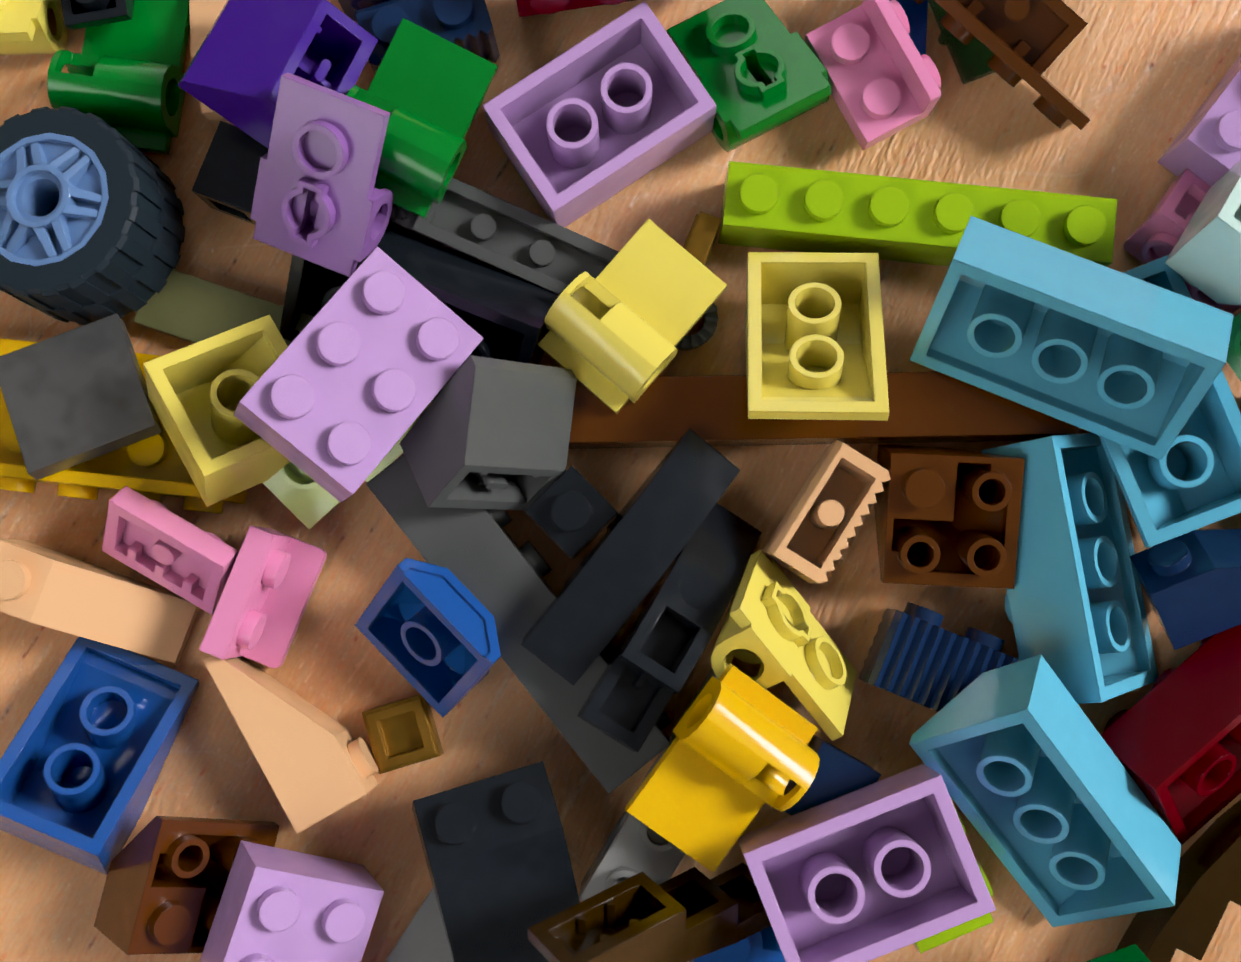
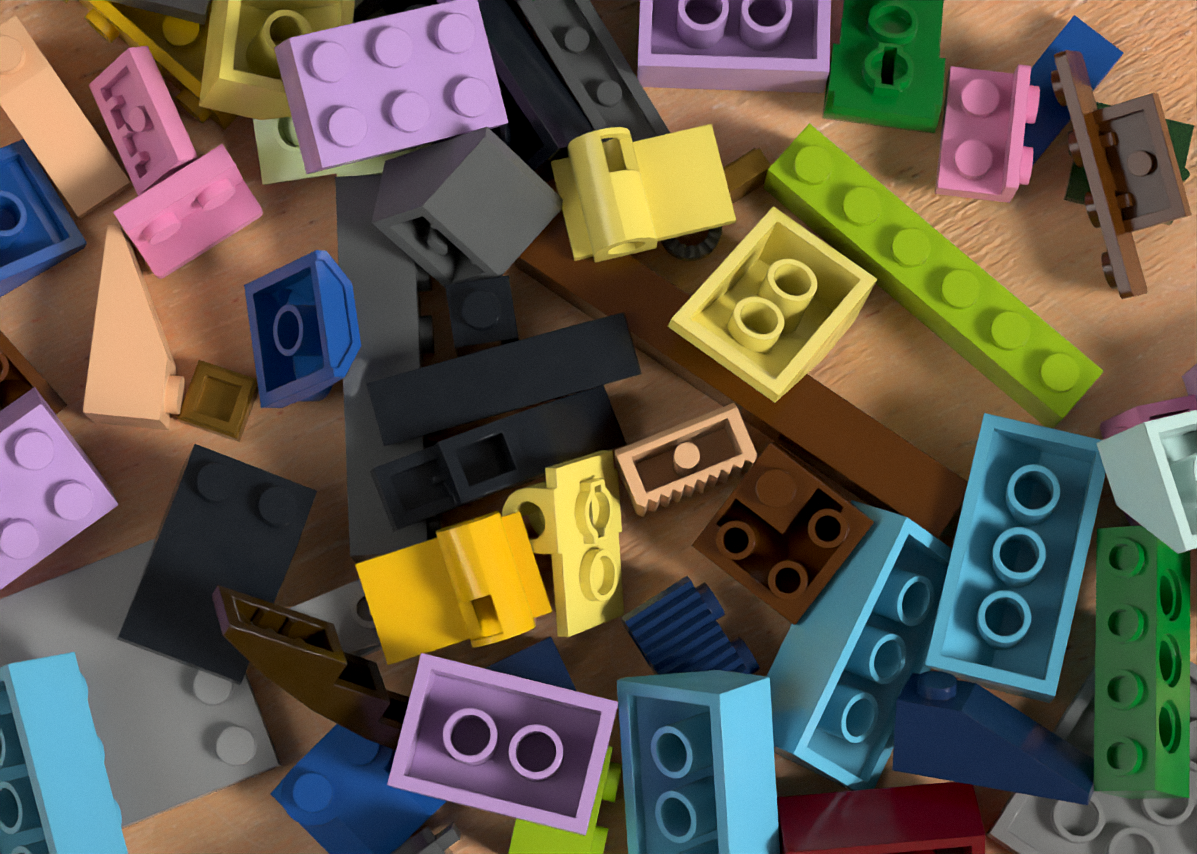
camera: 30 degrees right, 5 degrees down
(1073, 338) = (973, 445): medium azure slope -> none

